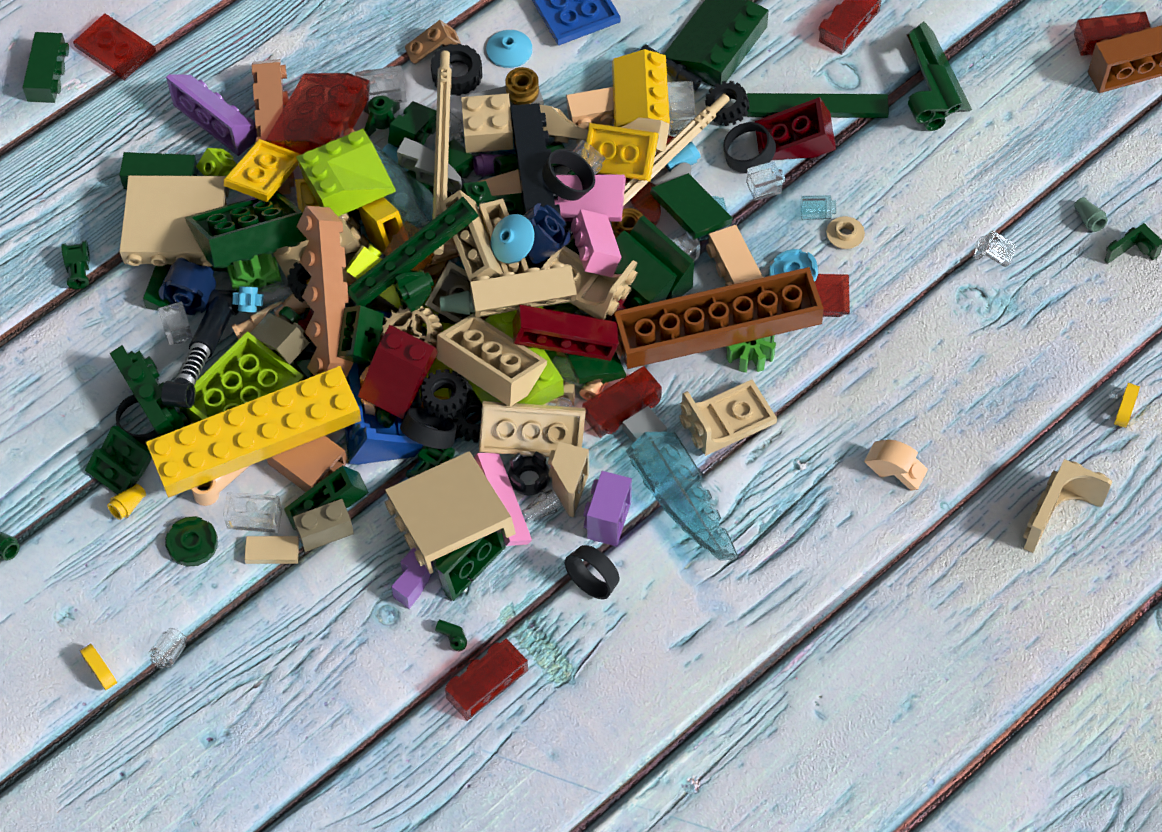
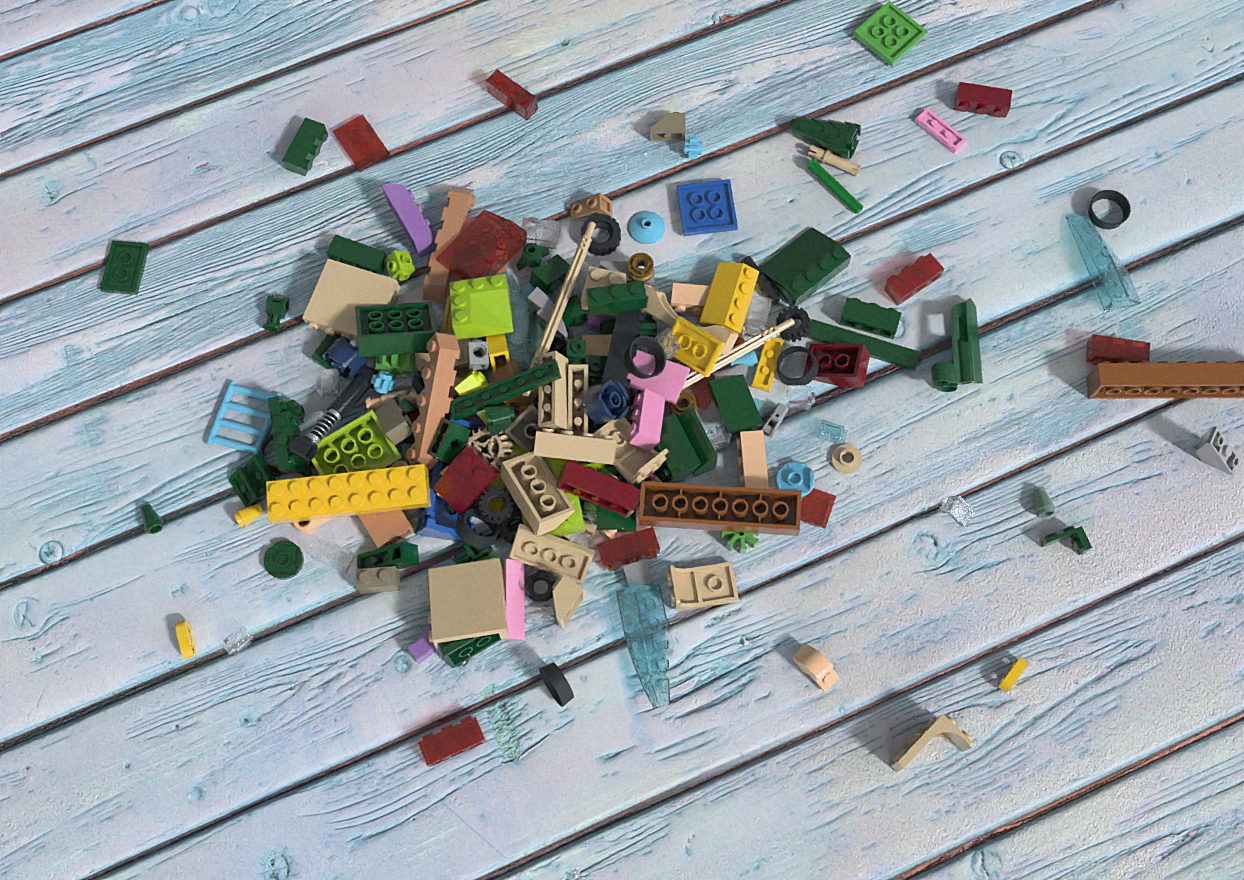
camera: 20 degrees right, 10 degrees up
(49, 385) = (226, 404): none -> medium azure bar
(262, 170) = (424, 283): yellow tile -> none
(272, 549) = (336, 585): tan tile -> none
(361, 229) = (474, 362): none -> light grey brick
(455, 634) = (444, 697): dark green arm -> none
(457, 303) = (526, 438): sand green cone -> none
(509, 118) = (616, 298): none -> dark green brick
(519, 240) = (581, 403): medium azure dish -> none
(608, 508) = (586, 635): medium lavender brick -> none
(712, 157) = (767, 364): none -> yellow tile
(745, 211) = (775, 418): none -> light grey bar
(815, 73) = (870, 318): none -> dark green brick

